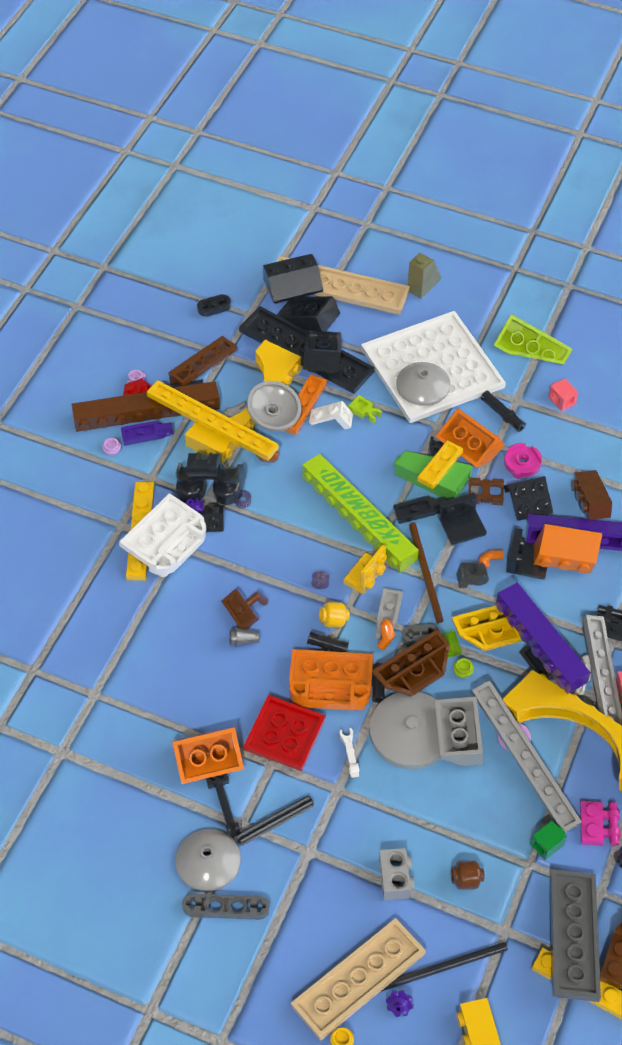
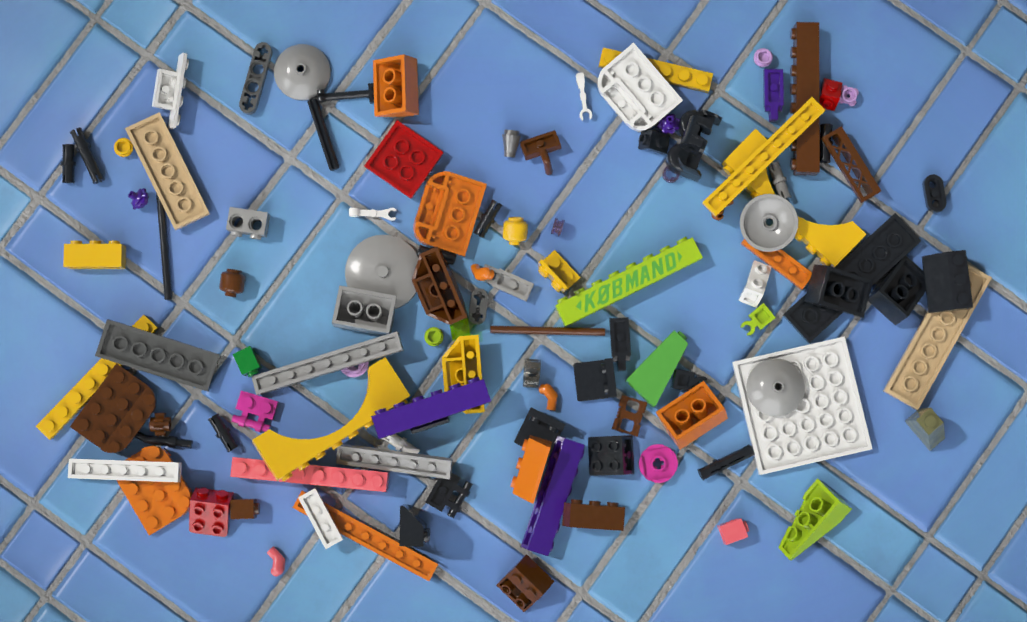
camera: 100 degrees right, 30 degrees up
(165, 589) = (581, 85): none -> white piece
(260, 996) = (169, 89): none -> white bracket
(440, 464) = (661, 373): yellow tile -> none

